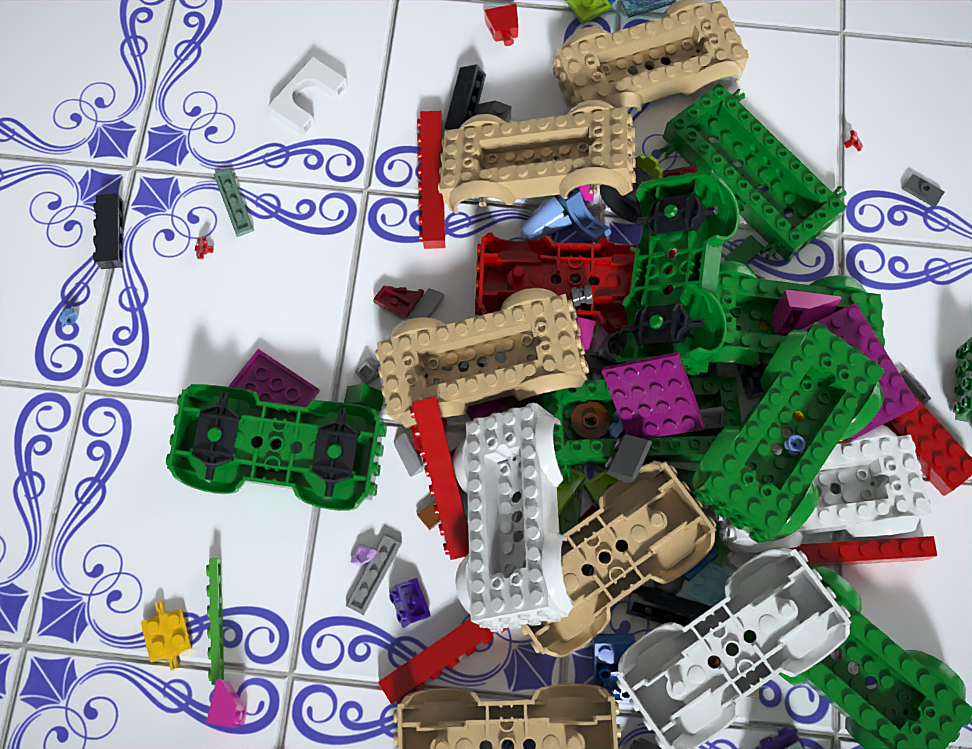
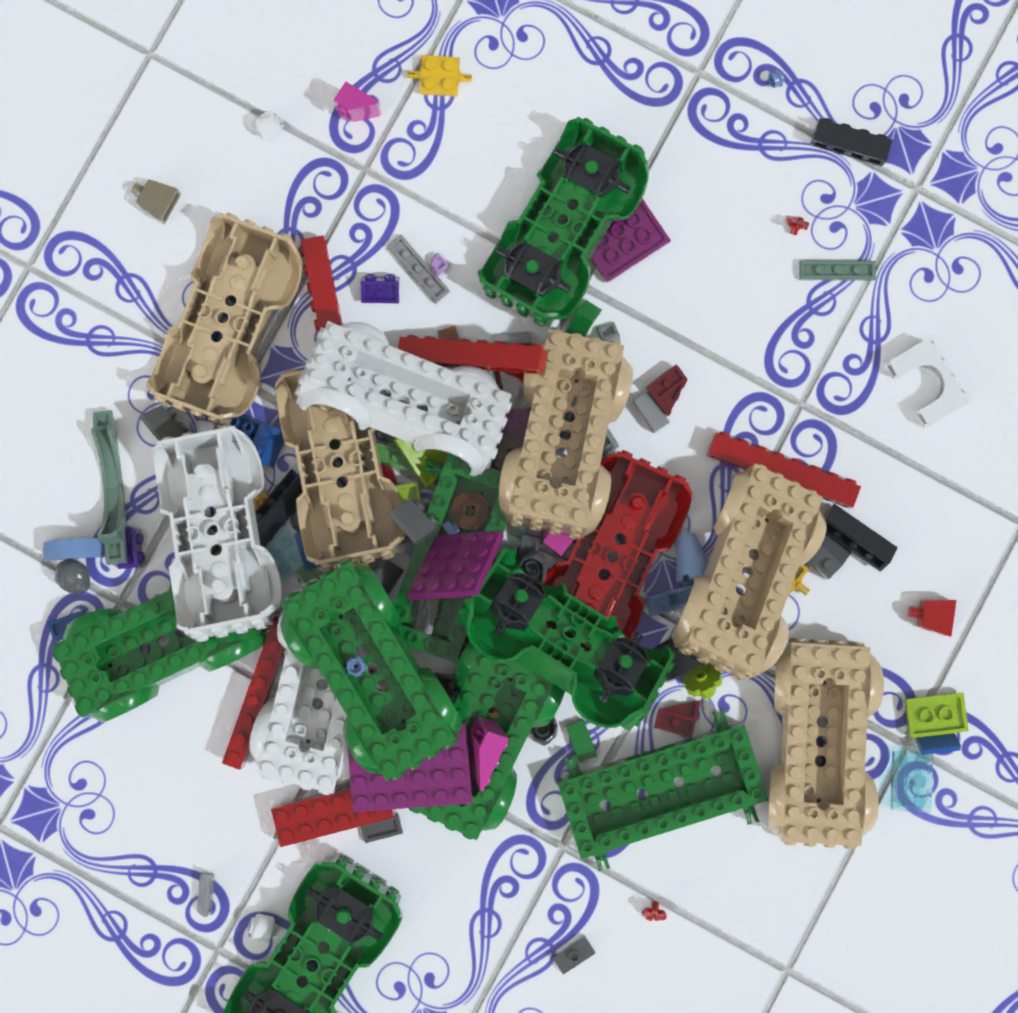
camera: 115 degrees right, 15 degrees up
(215, 613) = (439, 122): bright green plate -> none
(577, 297) = (589, 551): dark grey wheel -> none

